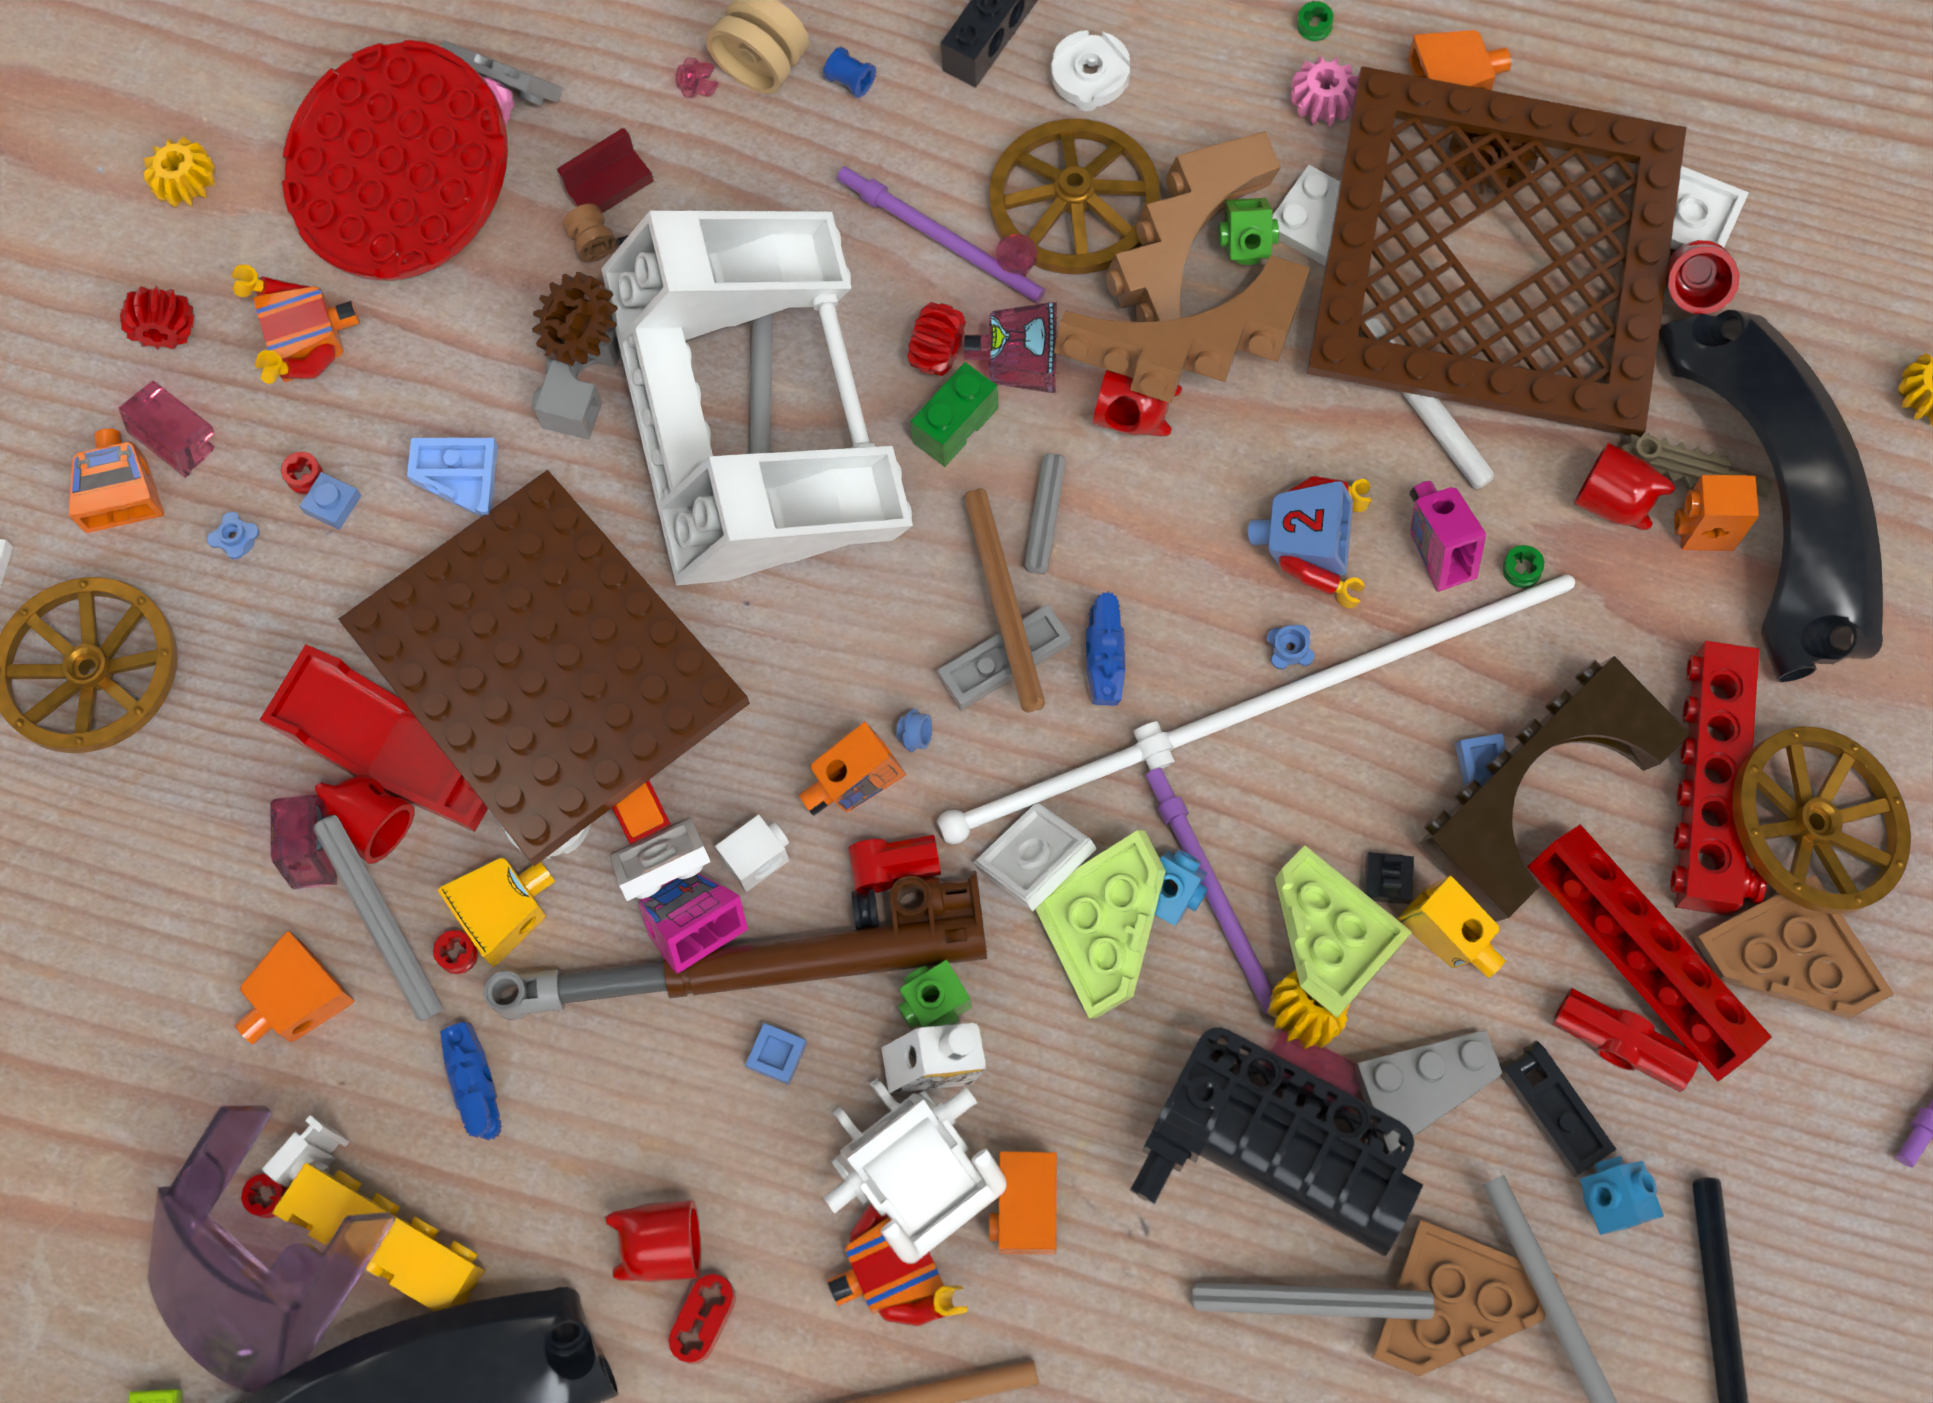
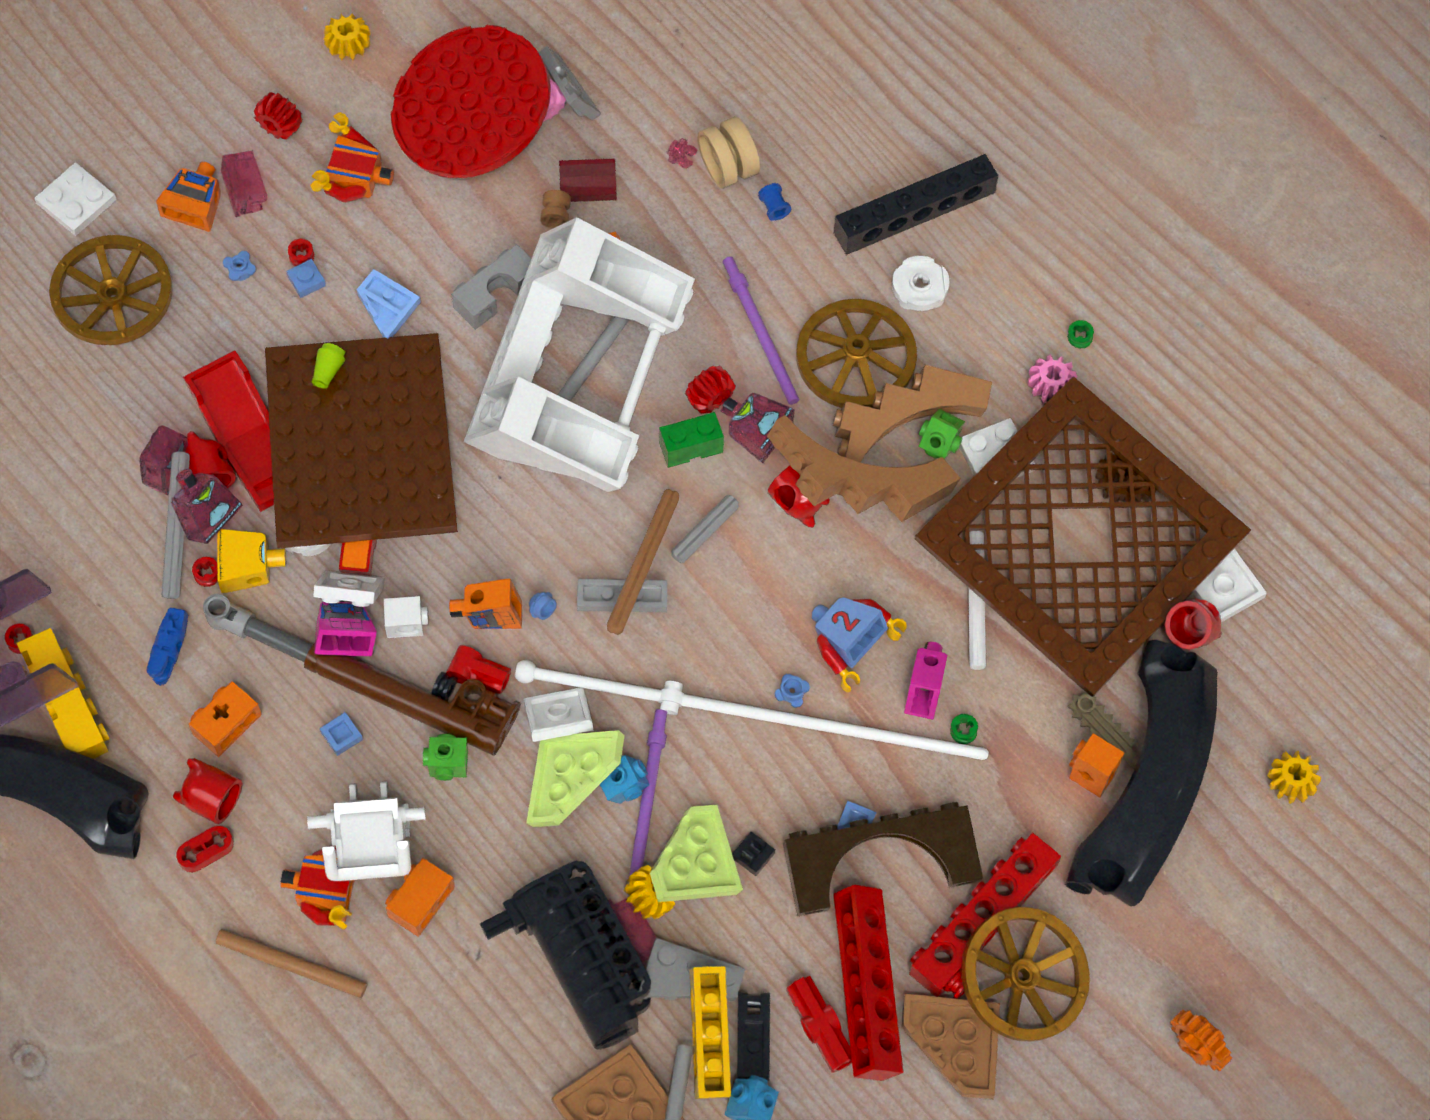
camera: 25 degrees right, 5 degrees down
(290, 993) = (103, 538): orange torso -> none
(311, 1147) = (62, 624): white plate -> none
(399, 871) = (203, 505): none -> clear pink torso
(438, 588) = (327, 364): none -> lime cone
(574, 319) = (506, 254): reddish brown gear -> none
(620, 1155) = (221, 733): none -> orange brick
(943, 1054) = (423, 788): white torso -> none
(1016, 254) = (794, 368): clear pink plate -> none
(1105, 651) = (681, 628): blue hinge -> none
(1313, 1300) = (539, 1047): light grey axle -> none
(1454, 927) = (761, 887): yellow torso -> none
(1457, 58) = (1145, 410): orange torso -> none
(1516, 1143) = (710, 1032): none -> yellow brick
(1622, 488) = (1051, 716): red piece -> none

